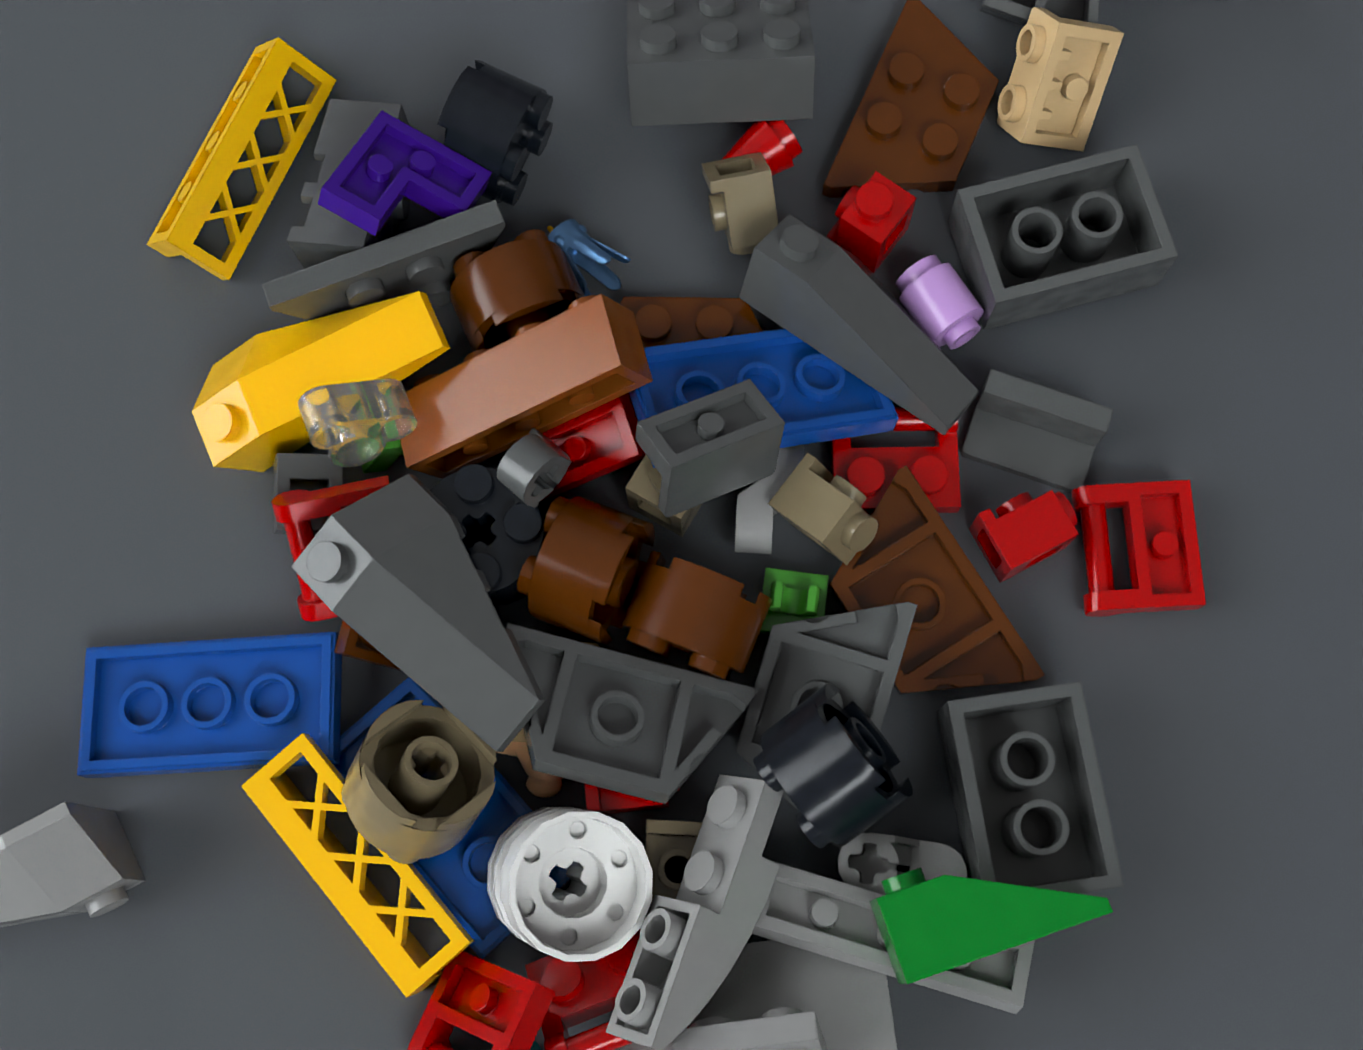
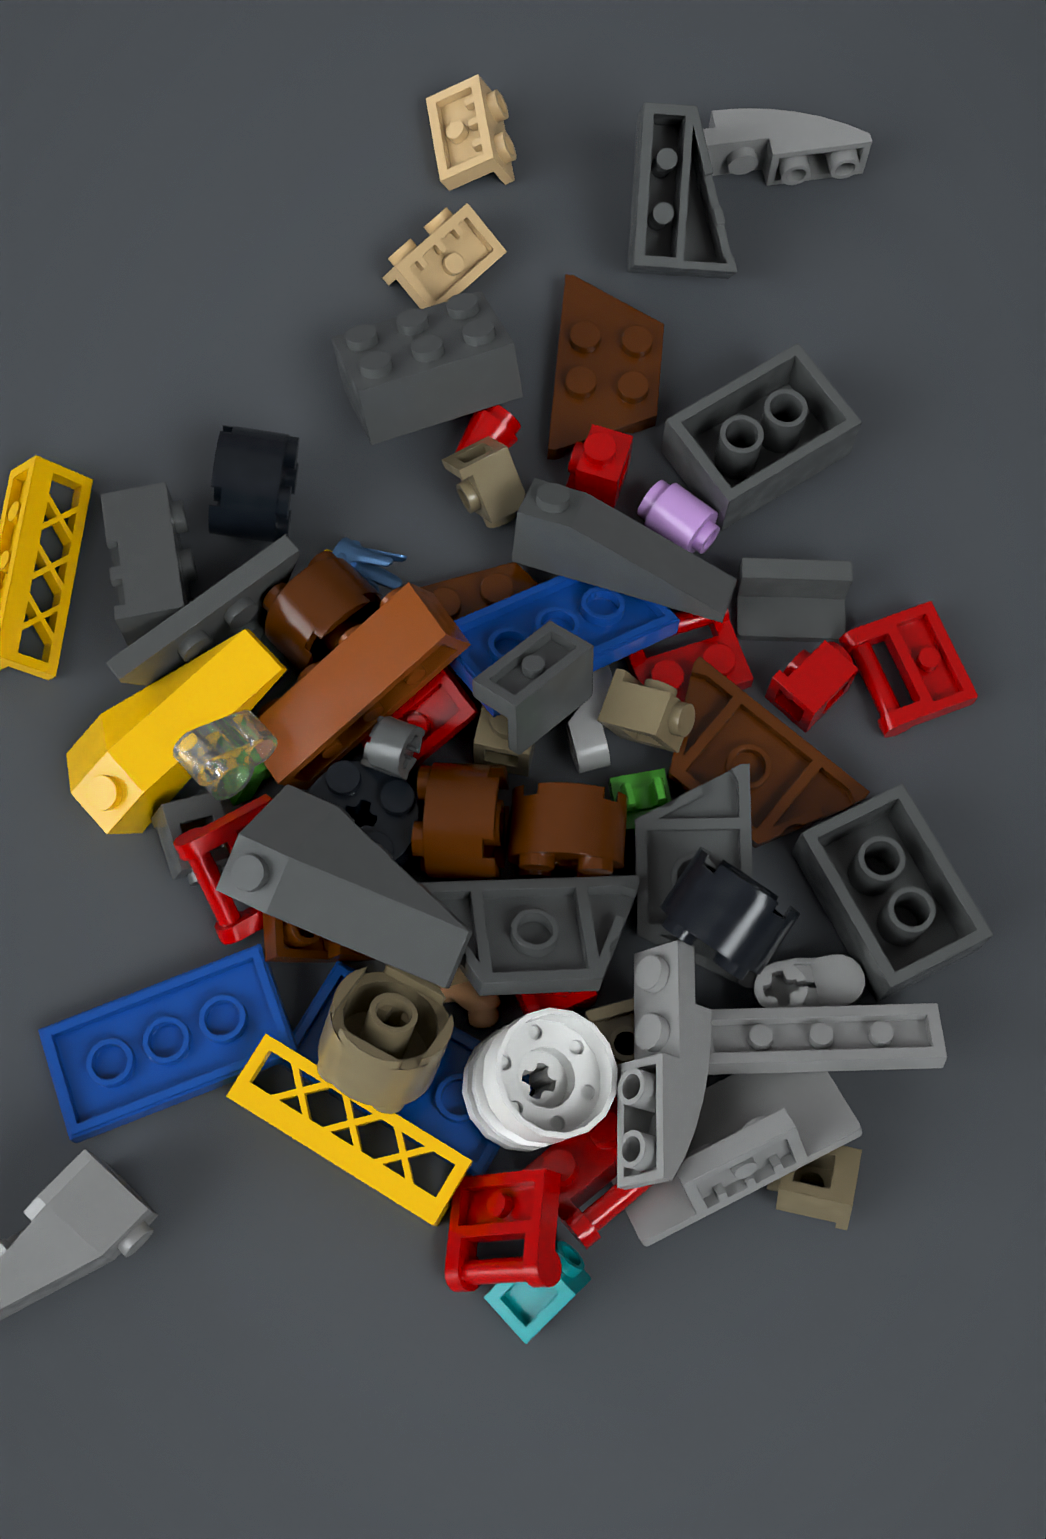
camera: 25 degrees left, 5 degrees down
(395, 163) = (190, 527): dark purple plate -> none
(964, 919) = (877, 995): green slope -> none
(1057, 80) = (713, 310): tan bracket -> none

